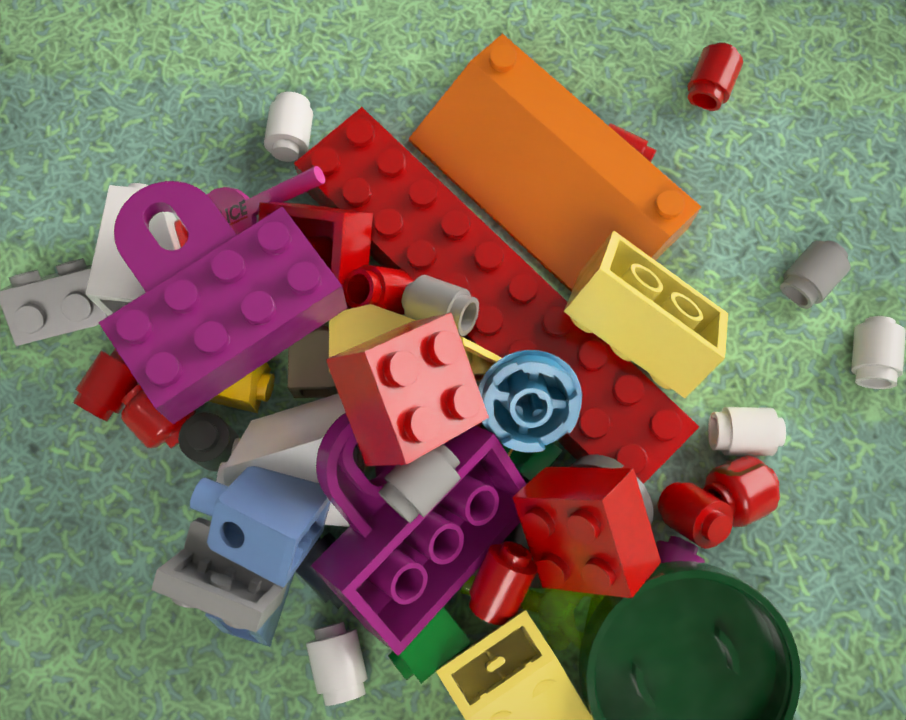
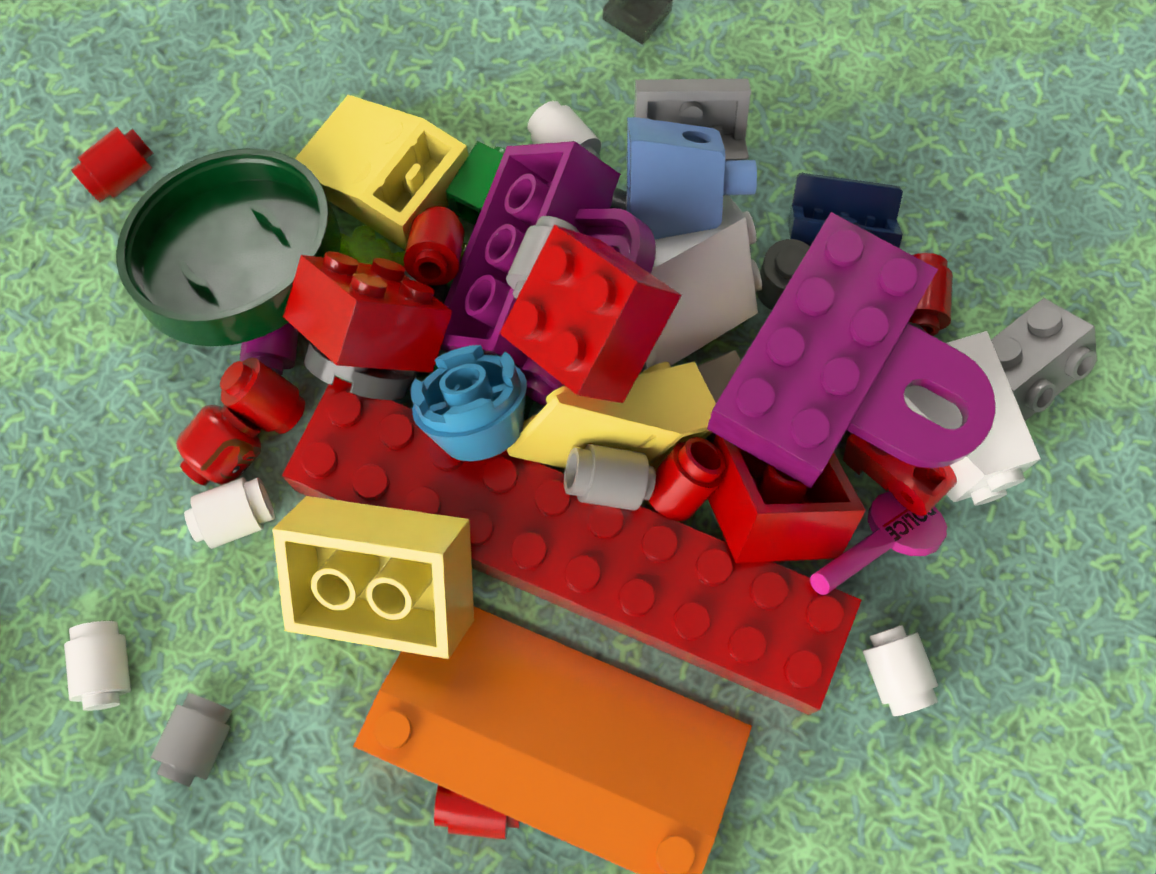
camera: 160 degrees right, 0 degrees up
(132, 476) = (860, 202): none -> dark blue bracket

